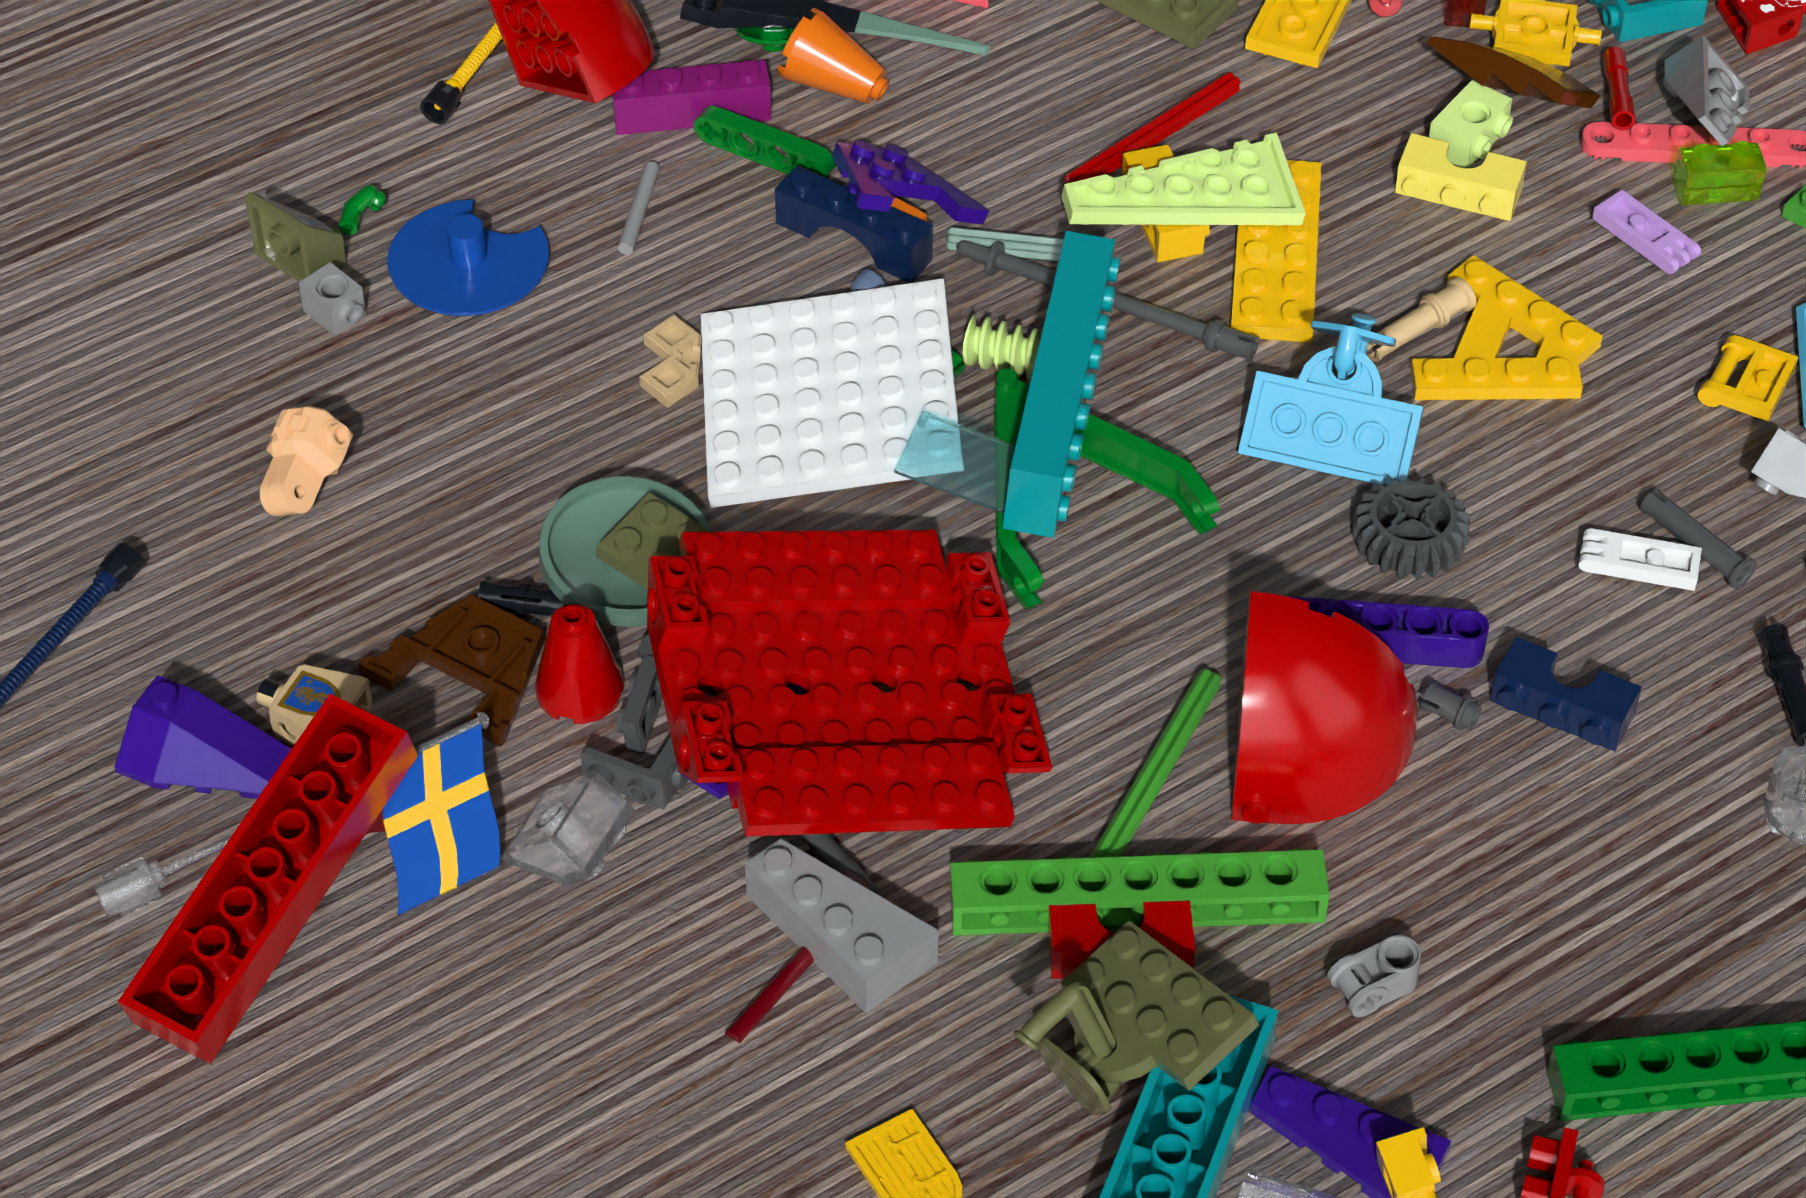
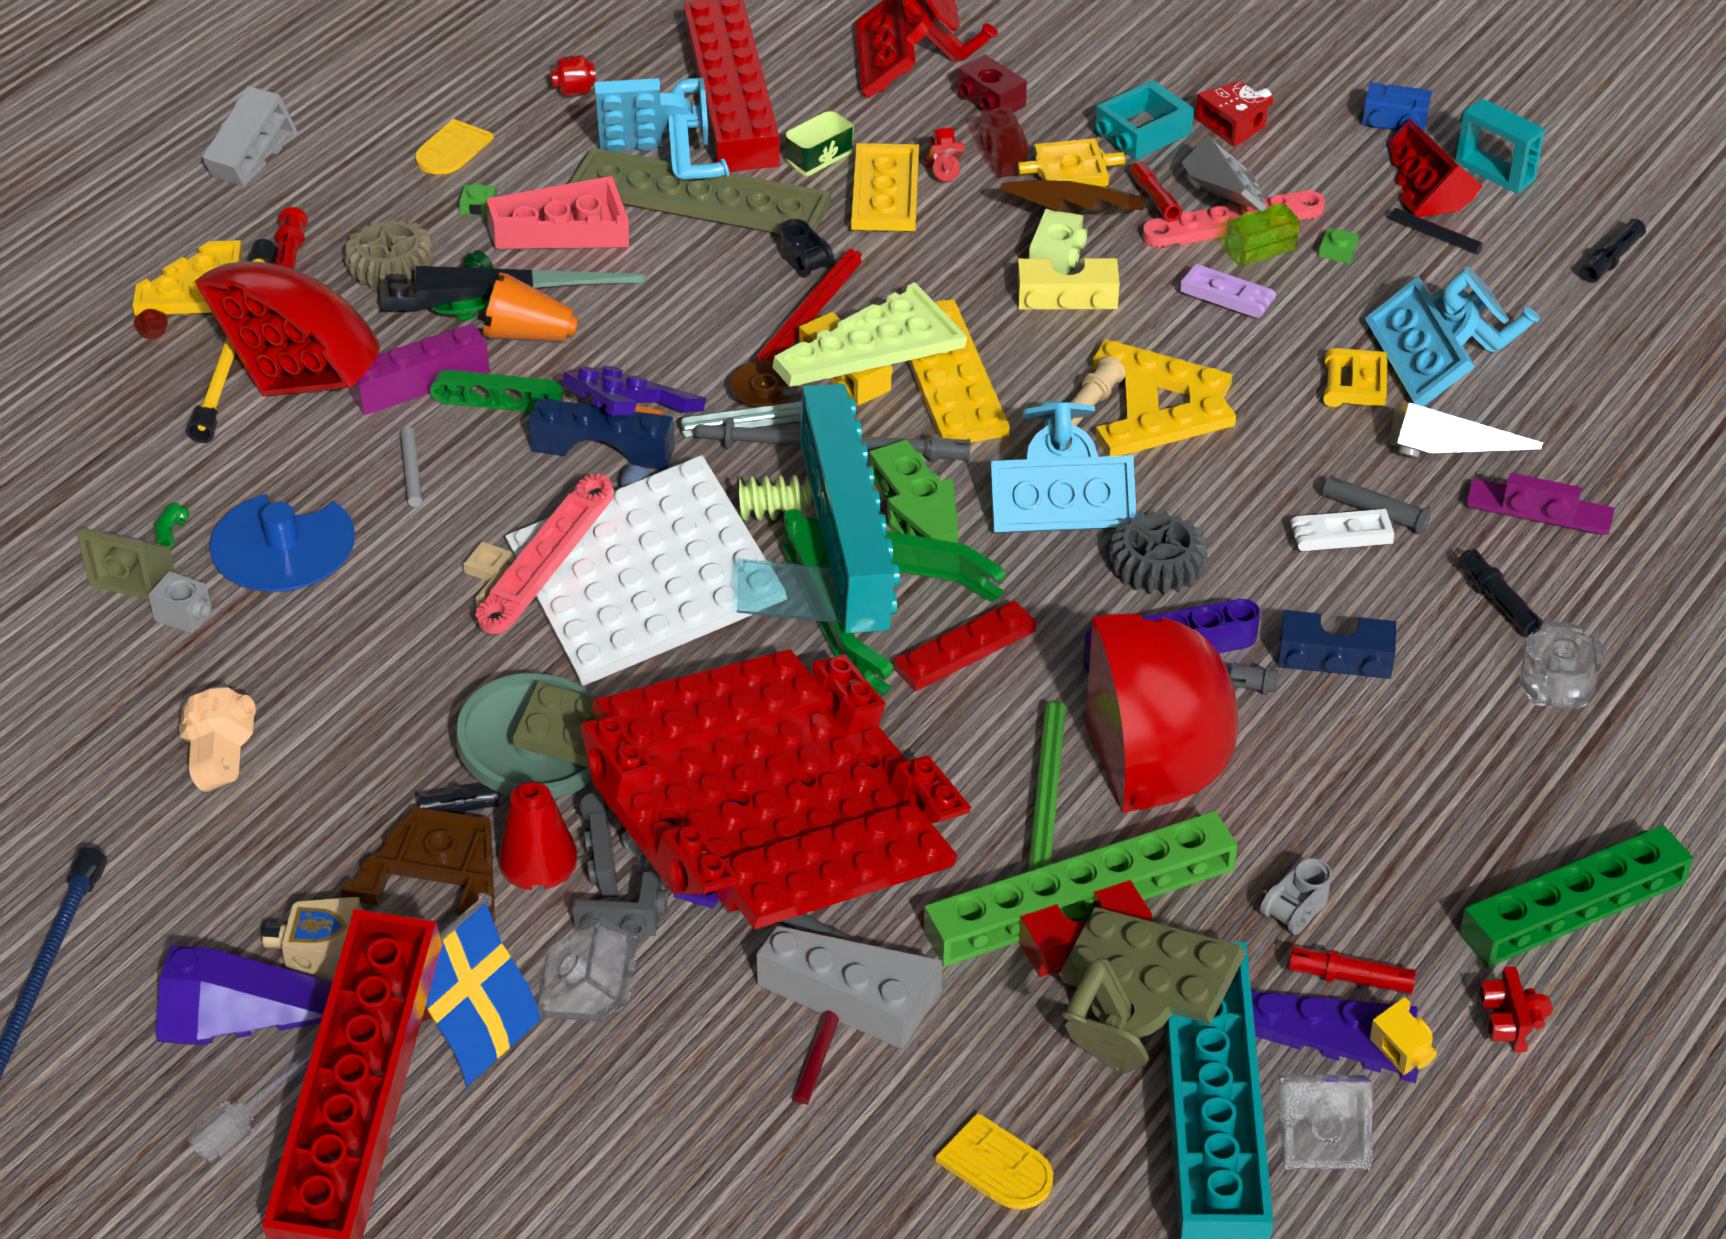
camera: 20 degrees left, 5 degrees down
(726, 347) = (544, 554): none -> coral plate
(1045, 213) = (760, 385): none -> reddish brown dish
(1144, 576) = (964, 645): none -> red plate
(1169, 396) = (914, 495): none -> bright green brick
(1177, 57) = (804, 248): none -> black piece
(1395, 1075) = (1351, 970): none -> red pin

